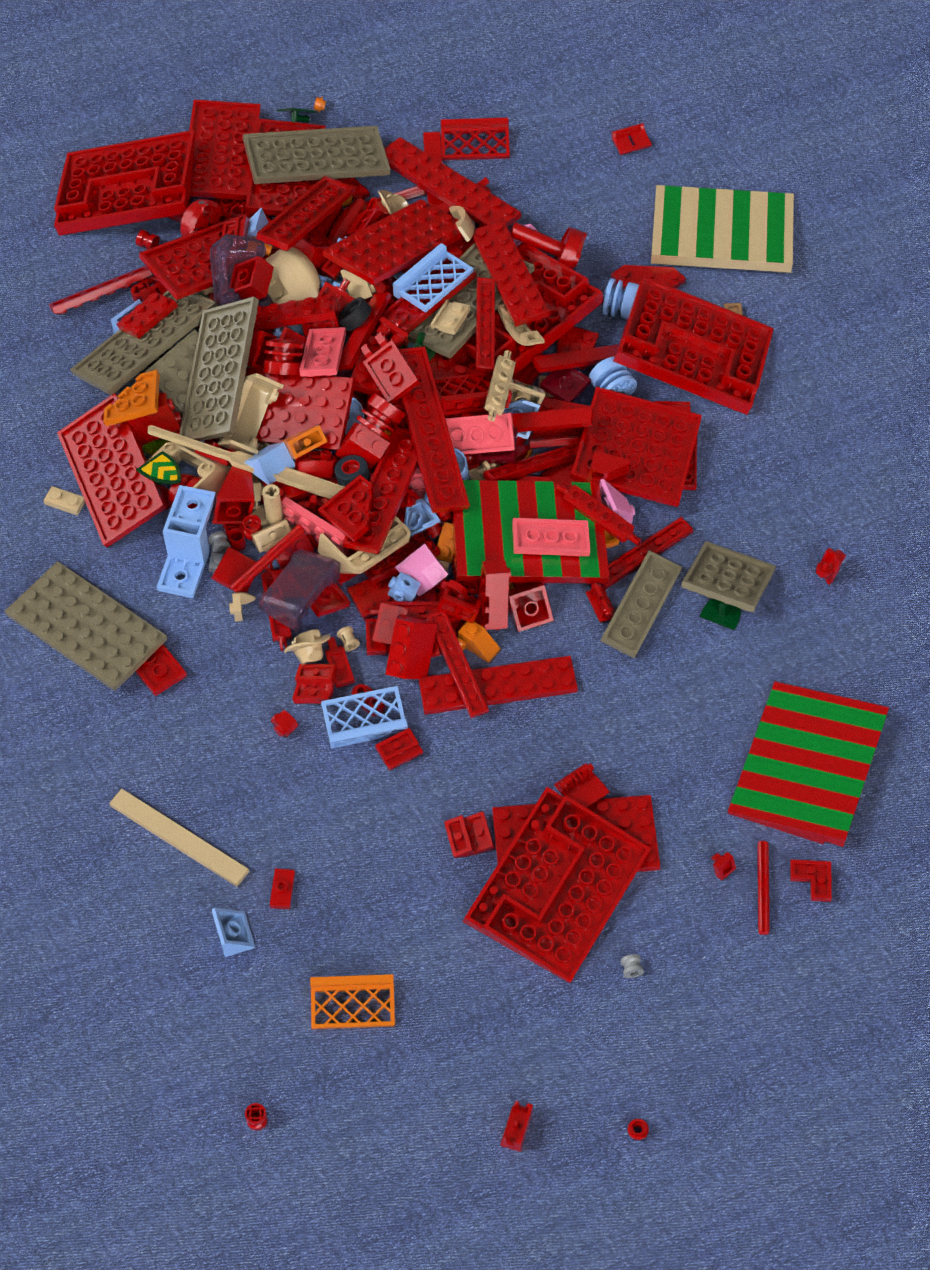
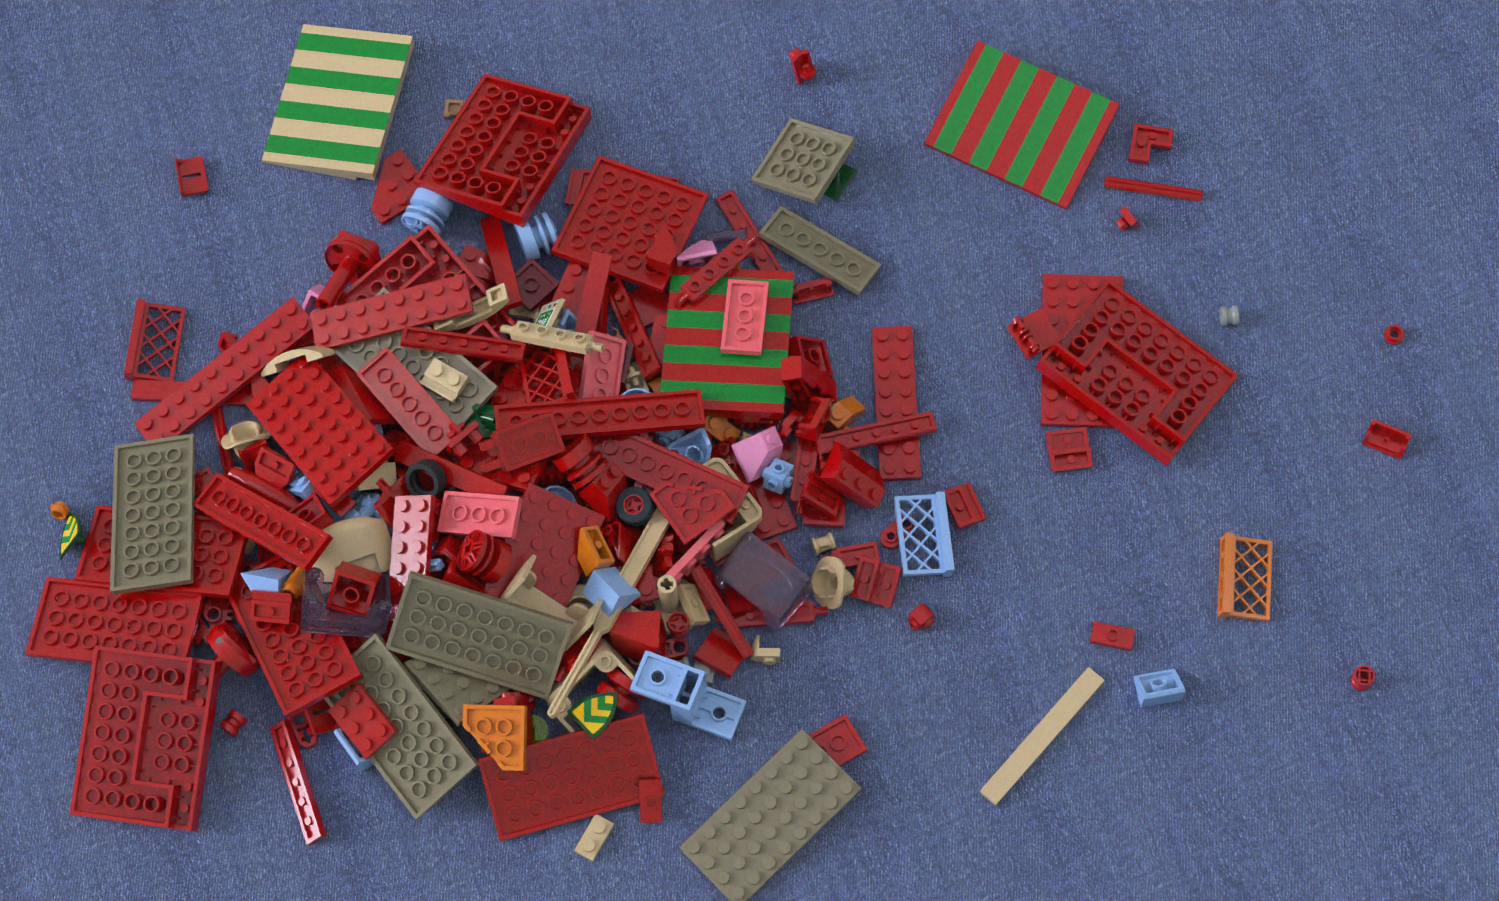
camera: 80 degrees left, 10 degrees up
(96, 533) = (650, 800): none -> red plate
(422, 271) = (375, 398): light blue fence -> none
(642, 528) = (726, 236): none -> clear purple pin

